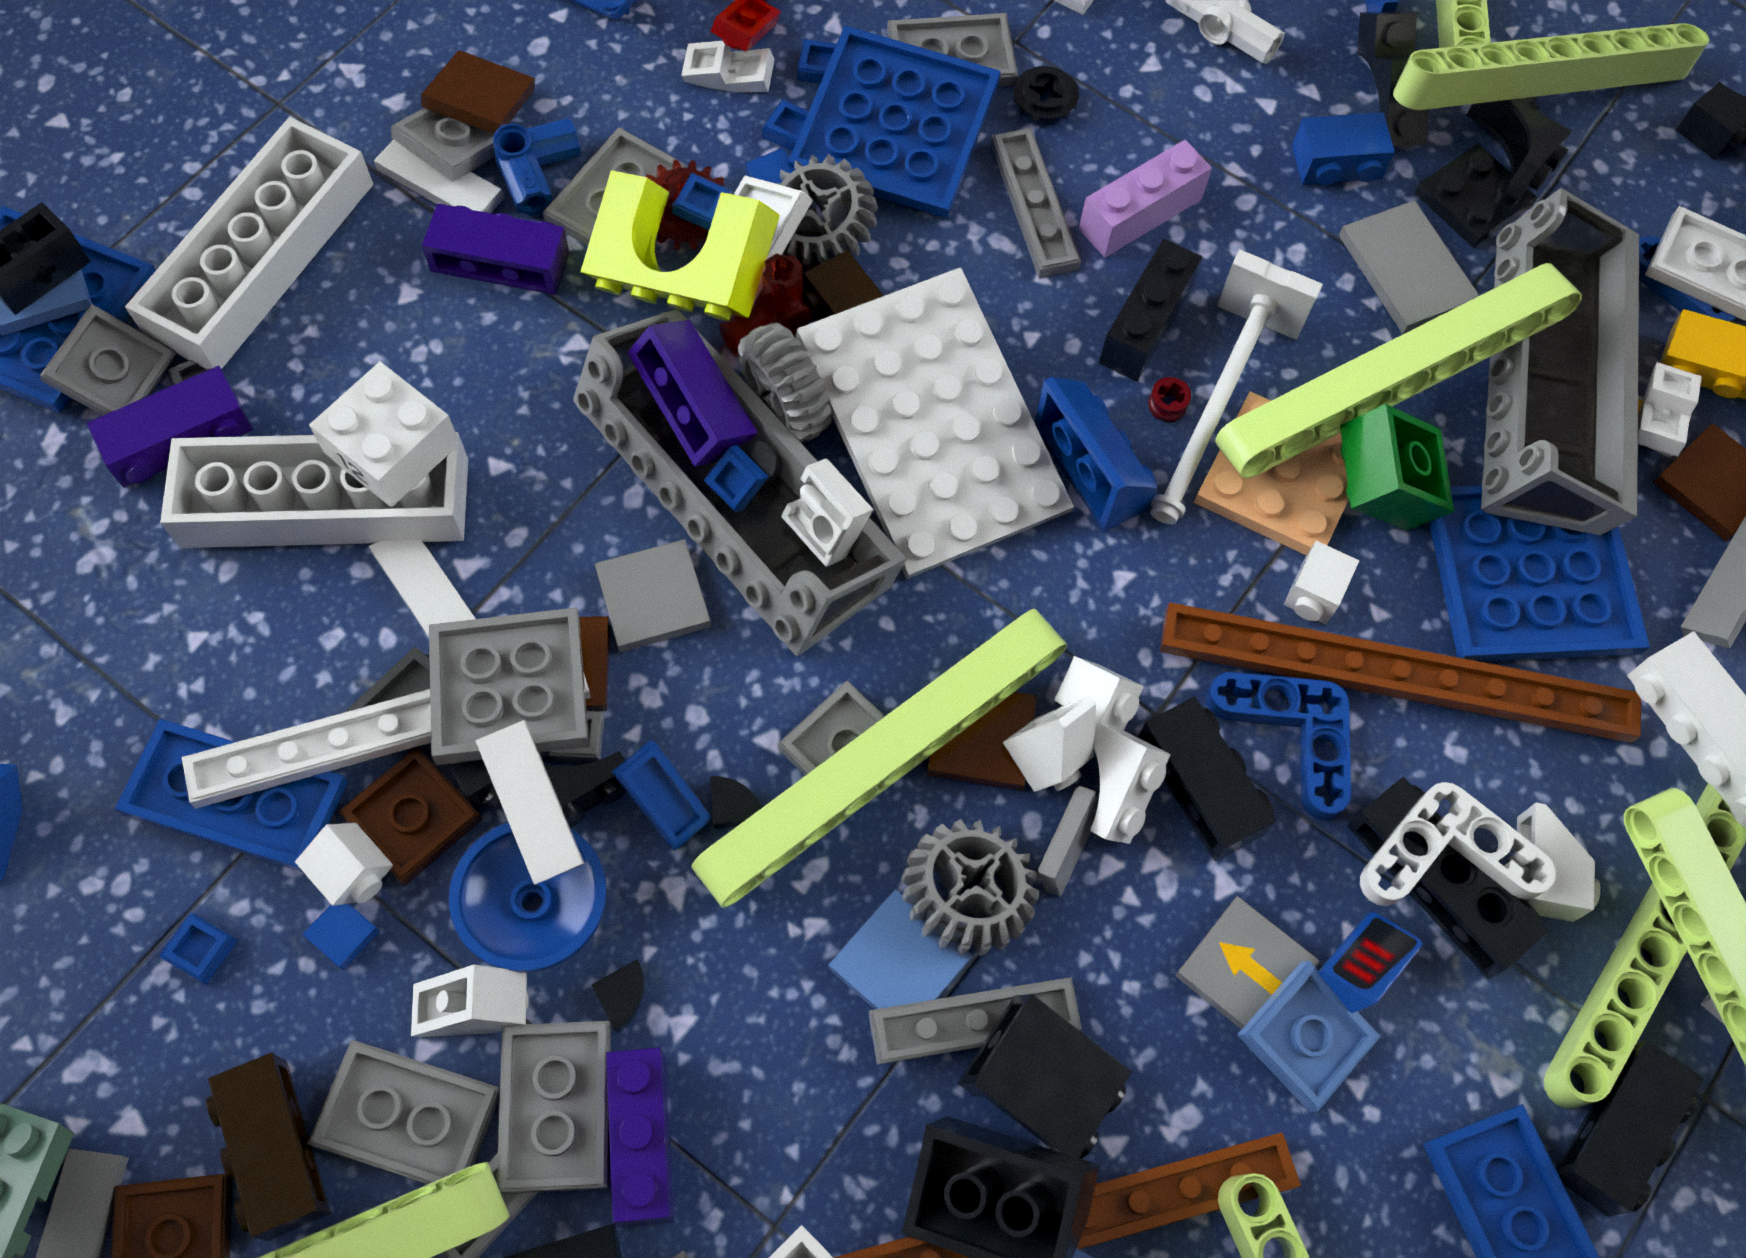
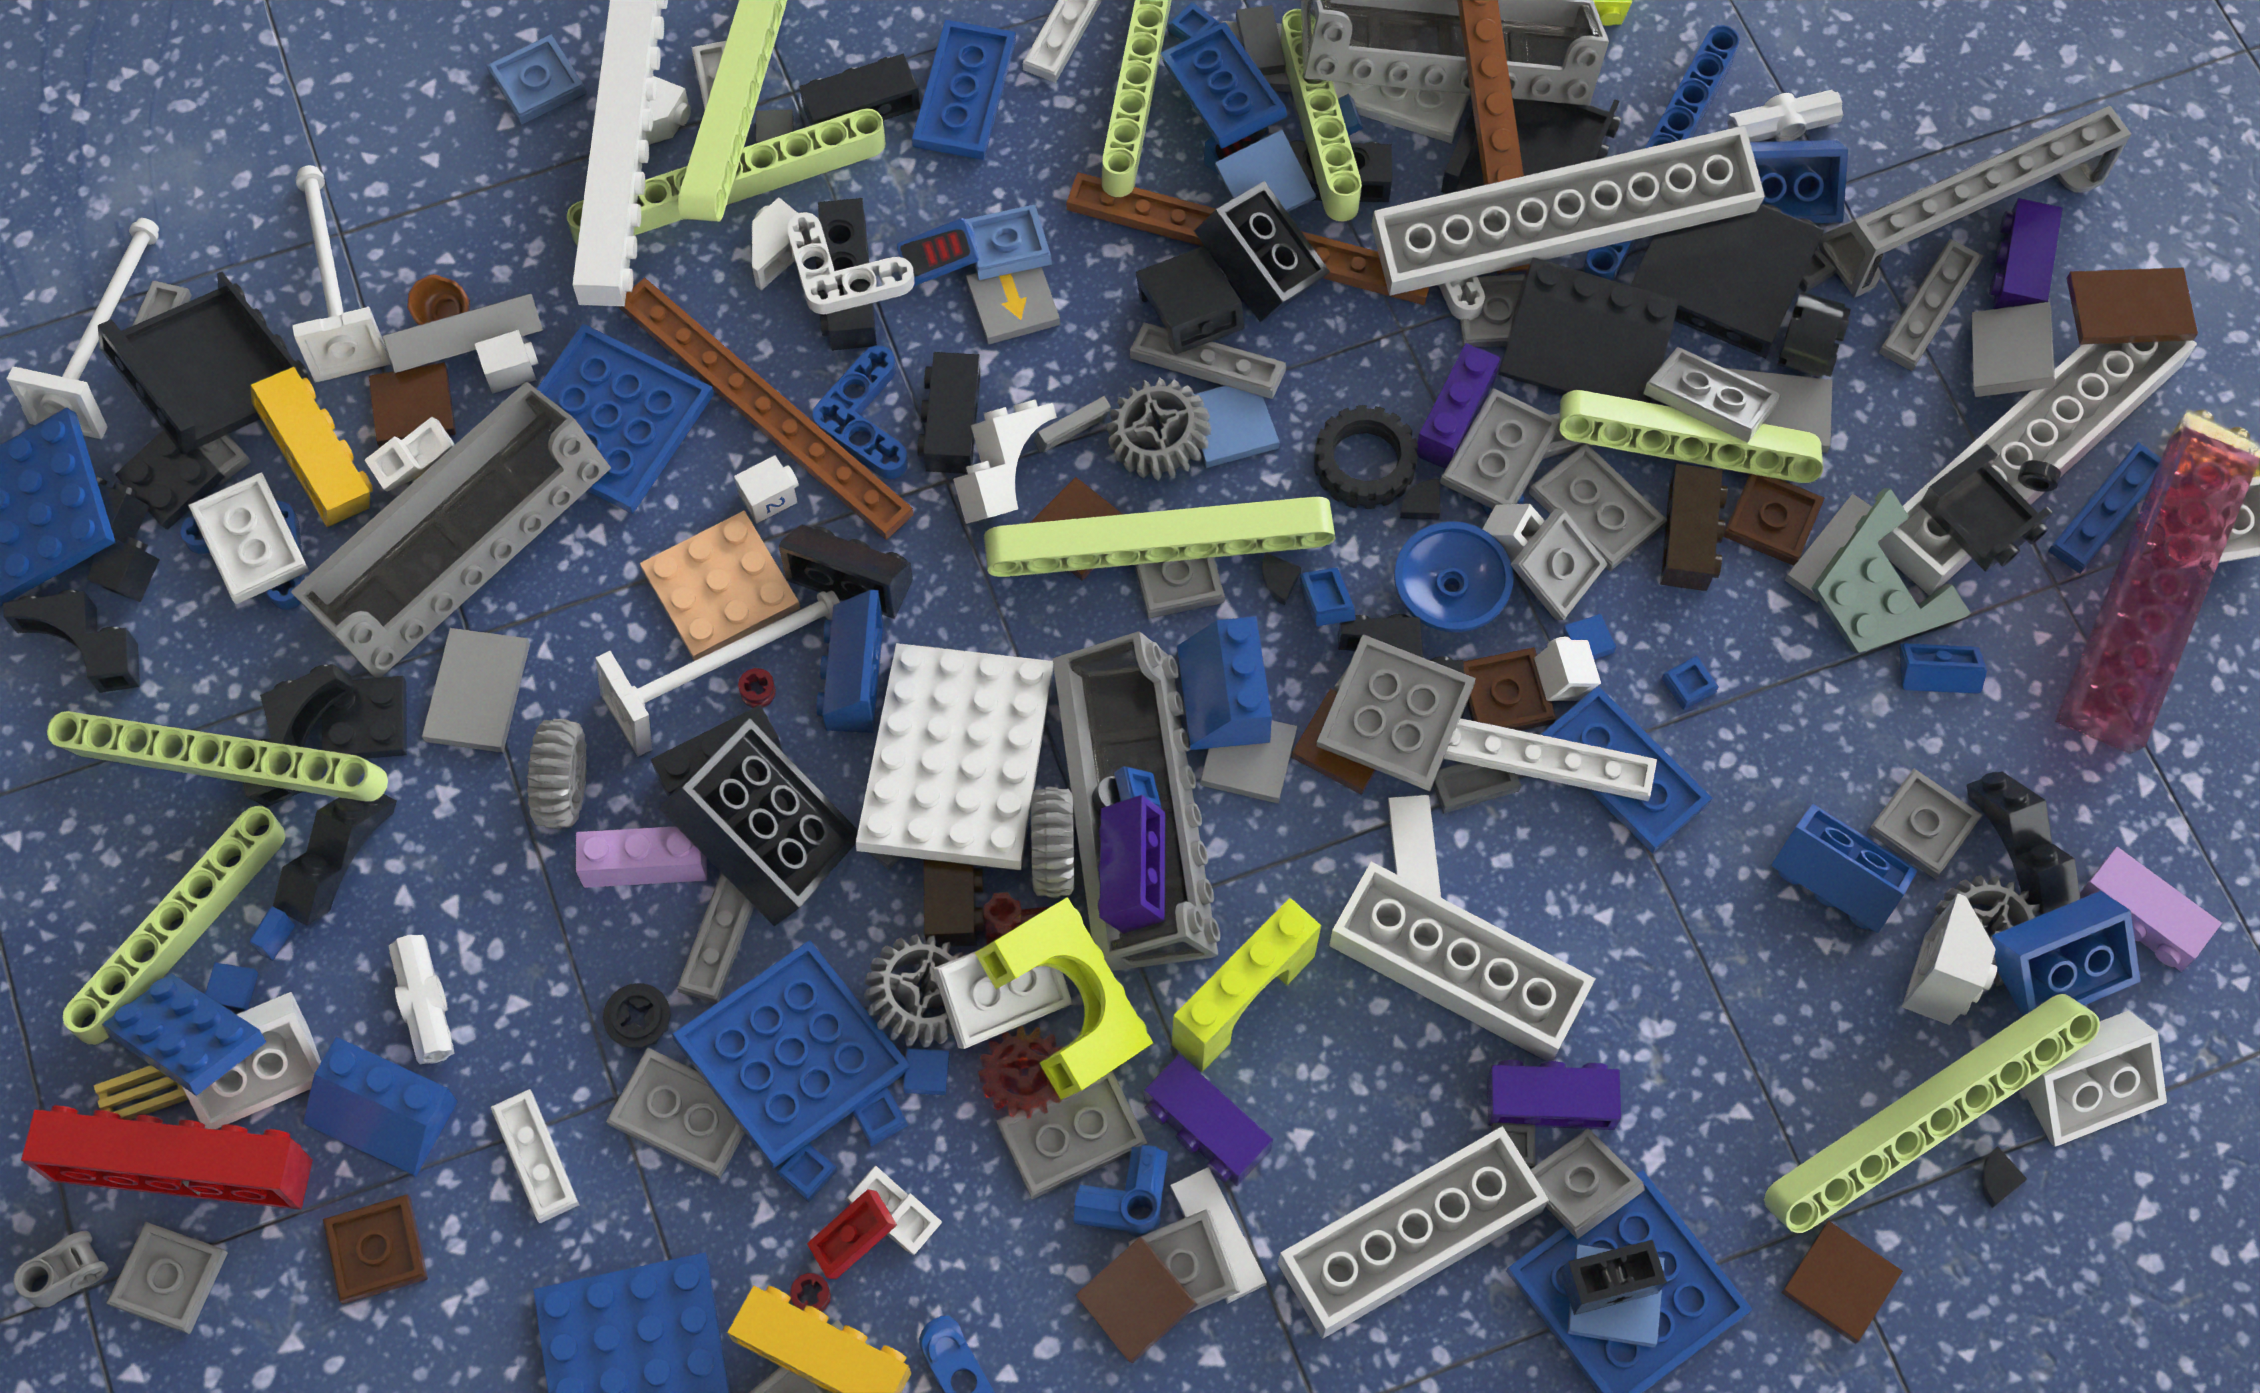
camera: 145 degrees left, 0 degrees up
(385, 434) = (1392, 935): white brick -> none
(411, 989) = (1559, 564): none -> light grey tile
(526, 306) = (1276, 949): none -> neon yellow arch
(529, 802) = (1424, 614): white tile -> none
(698, 201) = (1017, 1041): blue tile -> none
(704, 954) = (1377, 423): none -> black tyre
(712, 635) = (1225, 685): none -> blue slope
(833, 521) = (1091, 714): white brick -> none
(1055, 745) = (1044, 477): white slope -> none
(1062, 254) = (761, 822): none -> black slope
(1177, 536) = (848, 568): none -> black slope
(1272, 208) = (557, 773): none -> light grey gear
(1343, 148) = (439, 810): blue brick -> none
(1396, 468) = (652, 519): green brick -> none
(1397, 369) = (586, 578): yellowish green beam -> none
(1680, 565) = (506, 361): none -> white brick
(1681, 1026) = (773, 124): none -> dark grey tile

